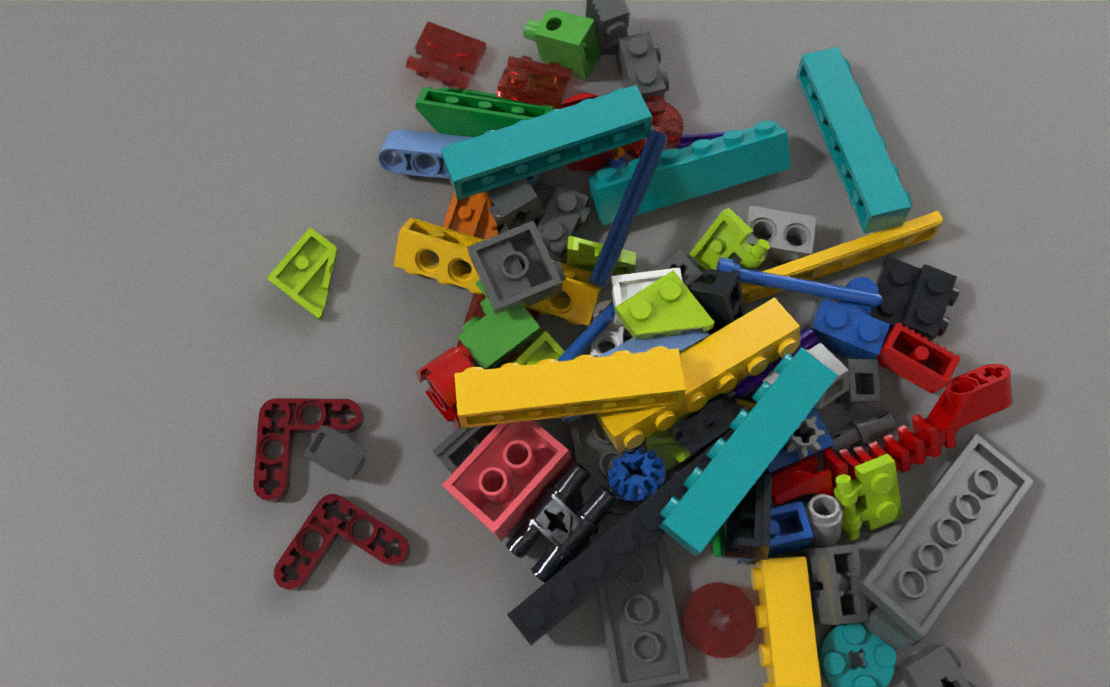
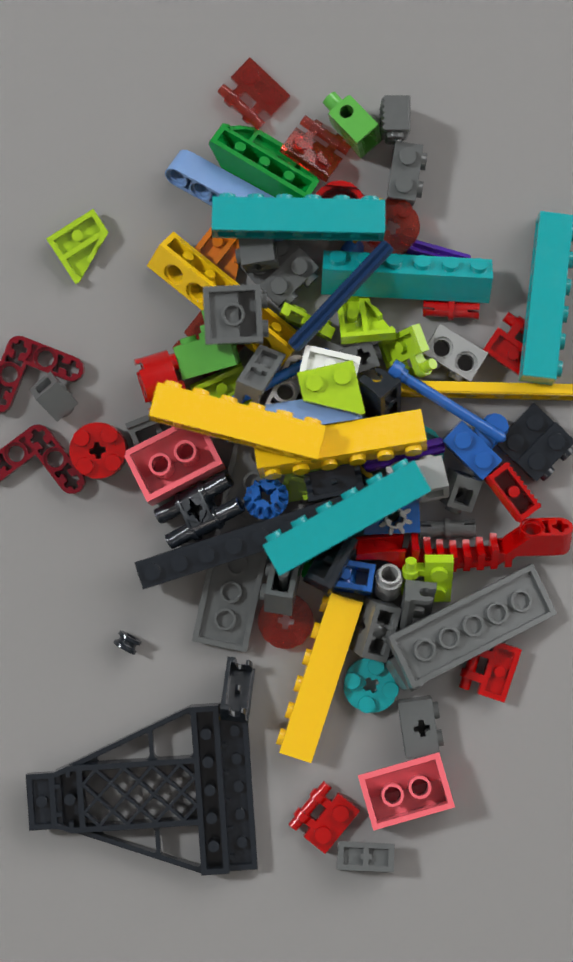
camera: 25 degrees right, 15 degrees up
(392, 490) = (86, 440): none -> red brick
(570, 326) = (258, 373): none -> dark grey hinge
(662, 236) = (362, 322): none -> lime wing
(700, 579) = (281, 590): none -> dark grey brick
(752, 191) = (451, 309): none -> red pin
(832, 210) = (504, 346): none -> red plate
(869, 528) = (416, 602): none -> dark grey hinge
(999, 581) = (497, 672): none -> red plate

